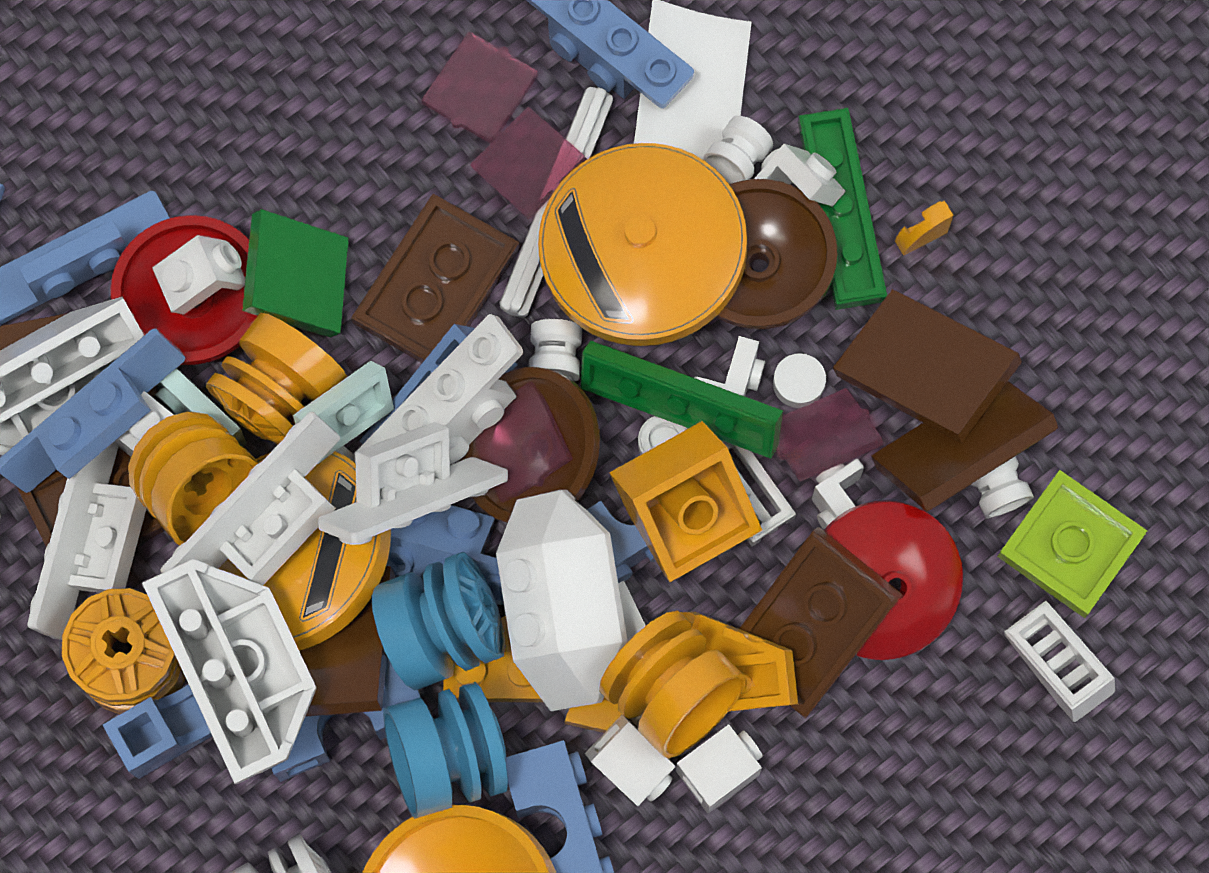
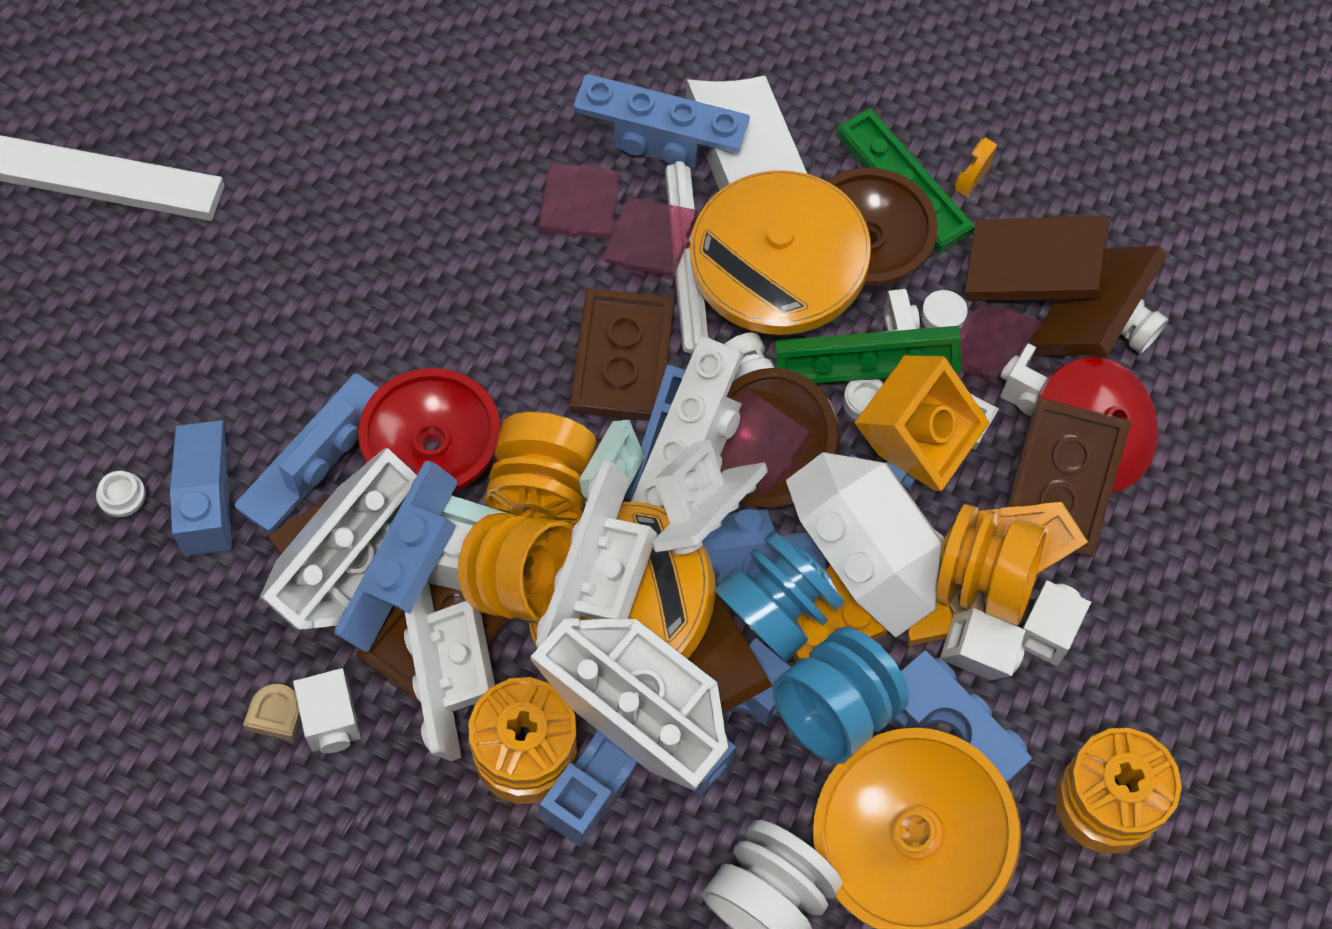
camera: 30 degrees left, 10 degrees down
(198, 272) = (434, 410): white bracket -> none
(295, 273) = (507, 380): green tile -> none
(738, 151) = (813, 155): white wheel -> none
(807, 171) = (875, 155): white bracket -> none
(1072, 543) = (1213, 345): lime plate -> none
(1088, 697) = (1274, 424): white slope -> none

